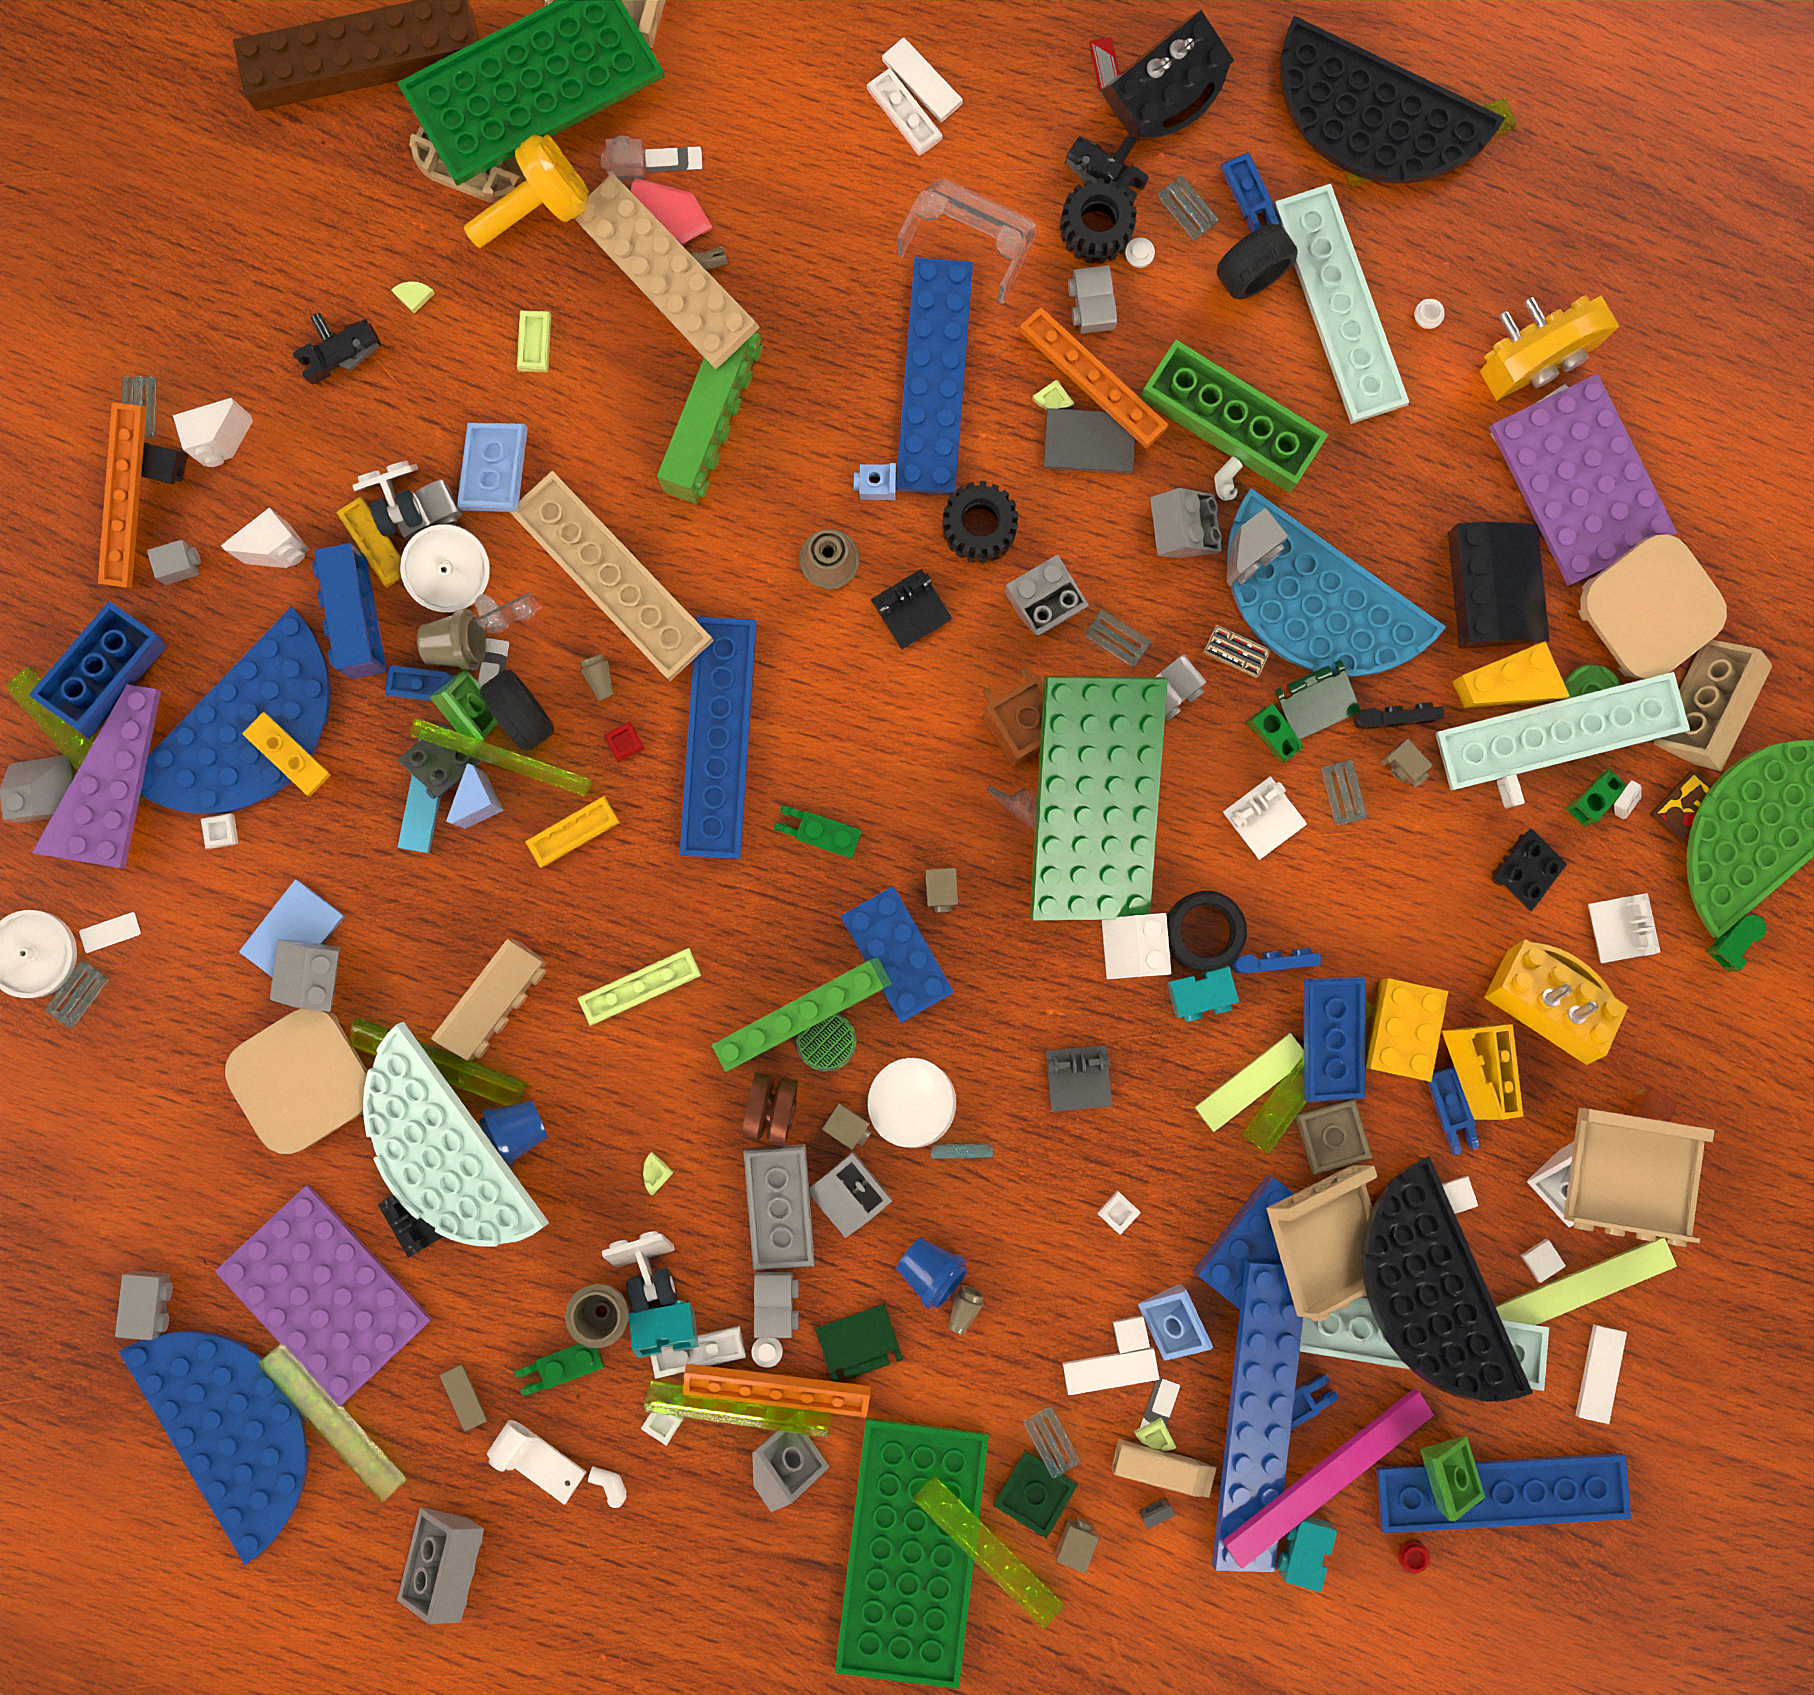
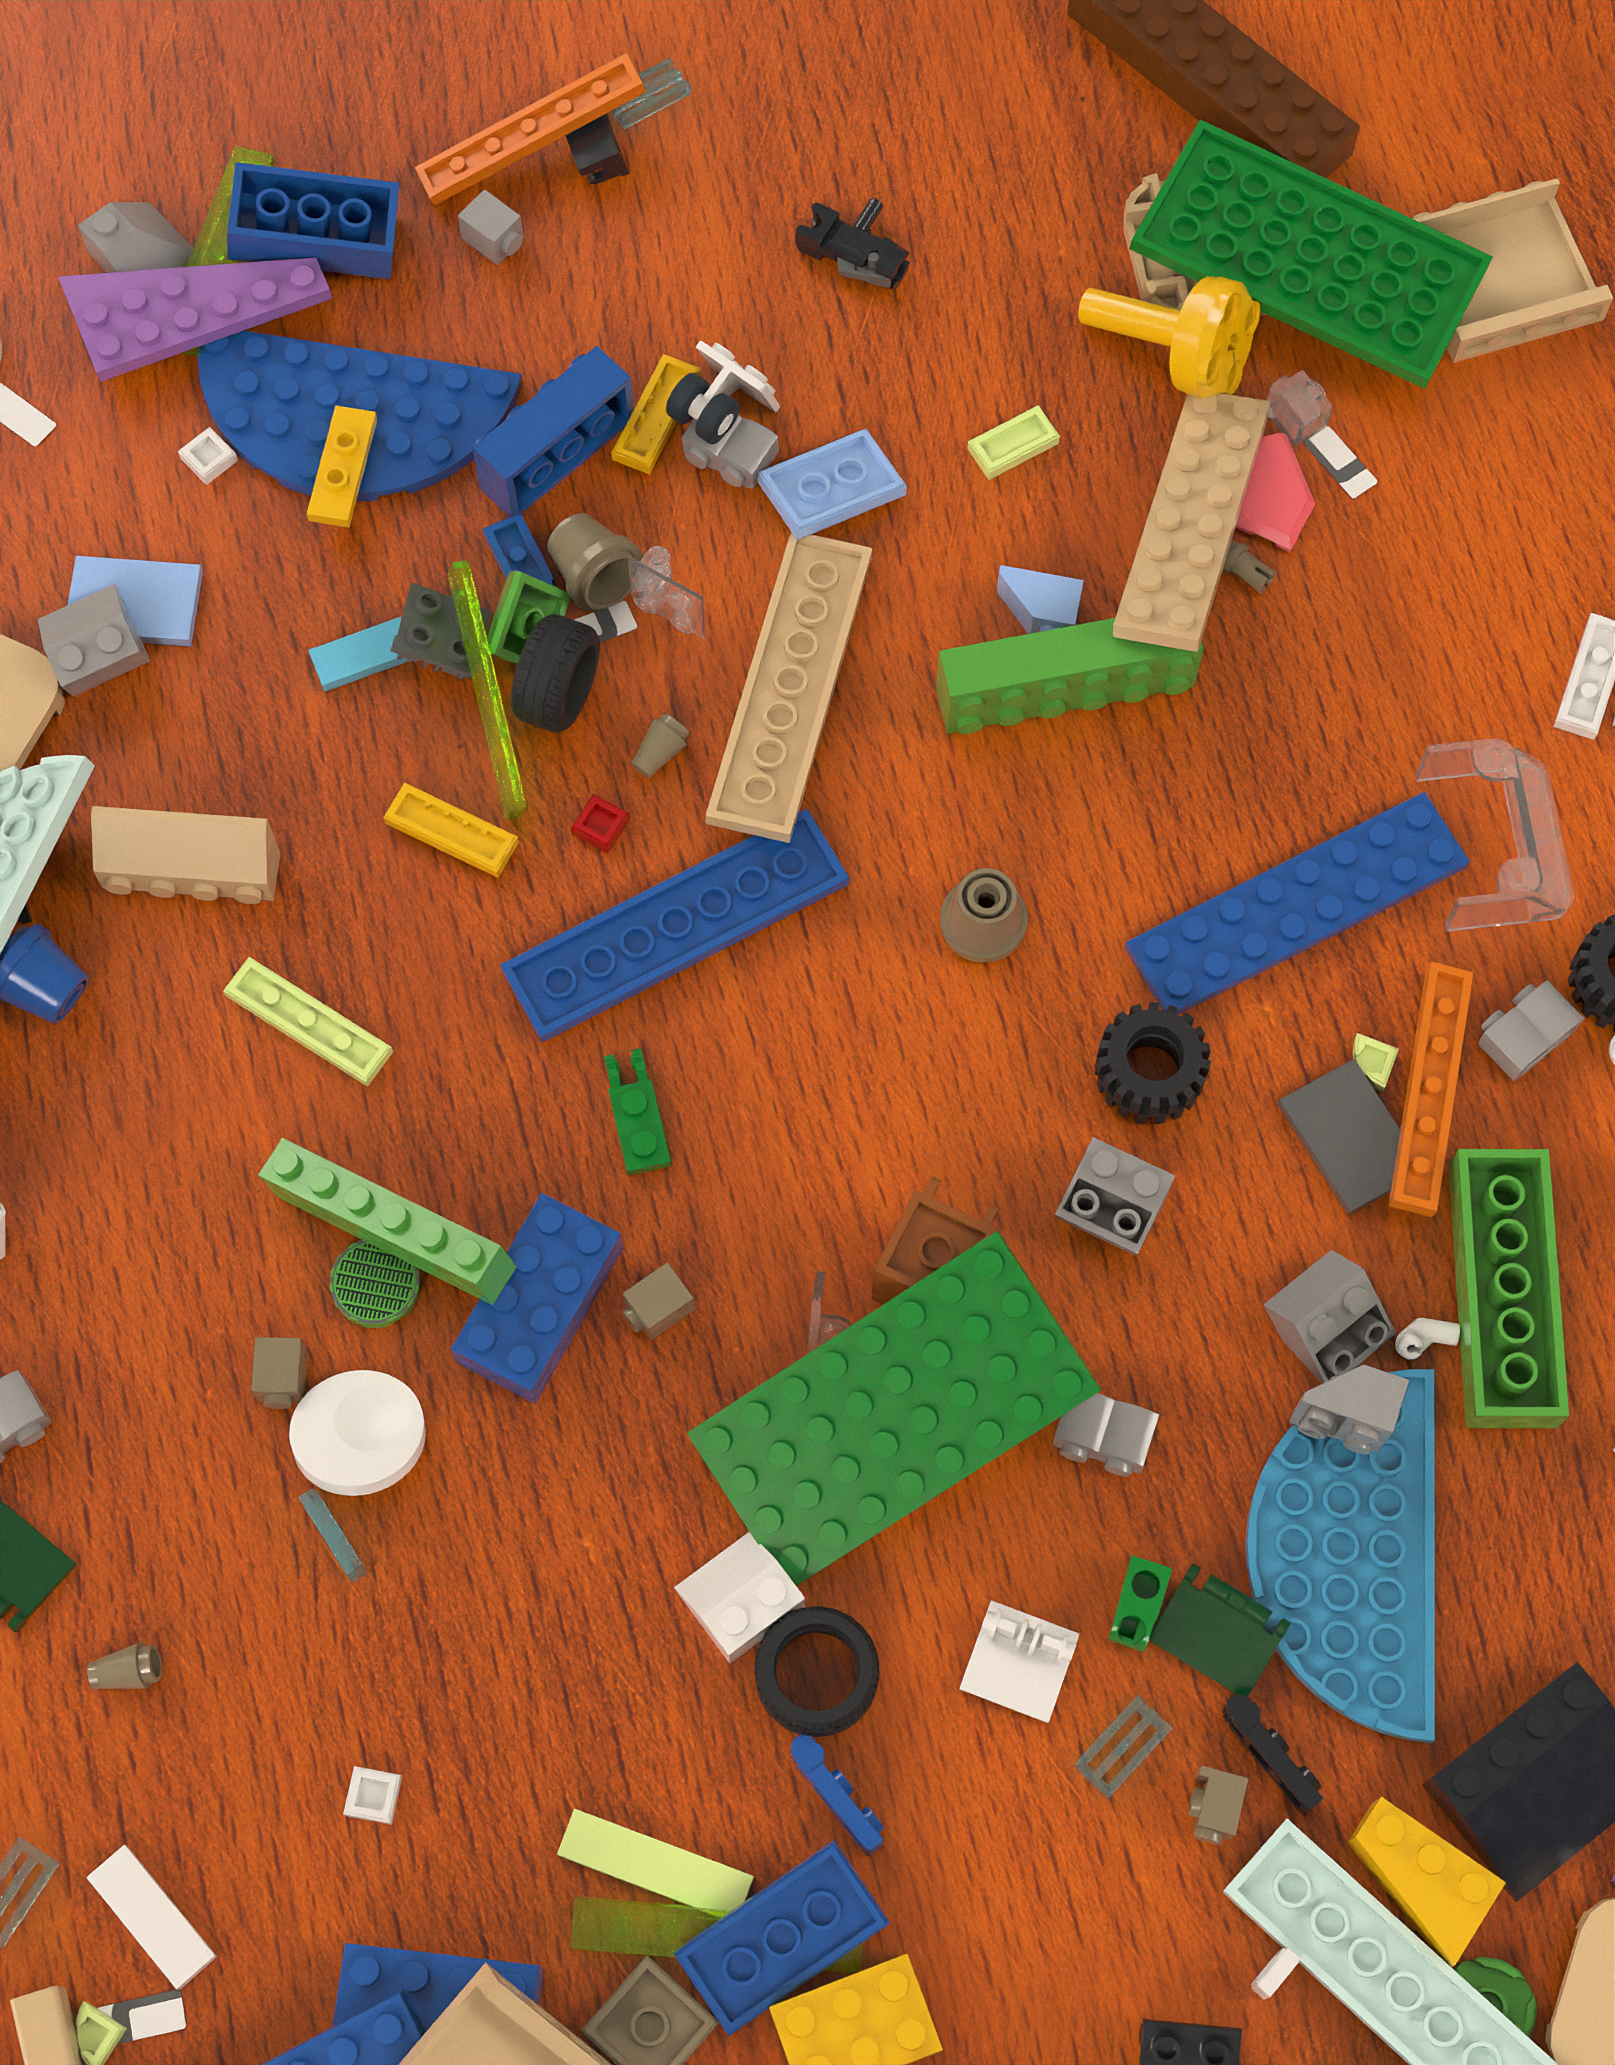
camera: 60 degrees right, 15 degrees down
(213, 431) = (667, 175): white slope -> none
(267, 542) = (578, 301): white slope -> none
(413, 294) = (975, 287): yellowish green tile -> none
(445, 568) = (677, 501): white piece -> none
(453, 1068) = (74, 866): clear neon green tile -> none
(474, 799) = (418, 692): light blue slope -> none
(654, 394) = (1039, 598): none -> light blue slope
(655, 1173) = (83, 1179): yellowish green tile -> none
(772, 1109) = (243, 1257): copper wheel -> none
(779, 1207) = (125, 1350): light grey tile -> none
(849, 1194) = (195, 1427): light grey slope -> none
(884, 489) = (1113, 926): light blue brick -> none
(911, 609) = (989, 1053): black hinge -> none
(932, 1272) = (149, 1591): blue piece -> none
(1079, 1078) = (520, 1630): dark grey hinge -> none
(1131, 1334) = (217, 1914): white tile -> none
(1132, 661) = (1126, 1365): clear light blue tile -> none
(1175, 1323) = (265, 1963): light blue slope -> none
(1212, 992) = (738, 1730): teal brick -> none
(1236, 651) = (1213, 1488): tile -> none

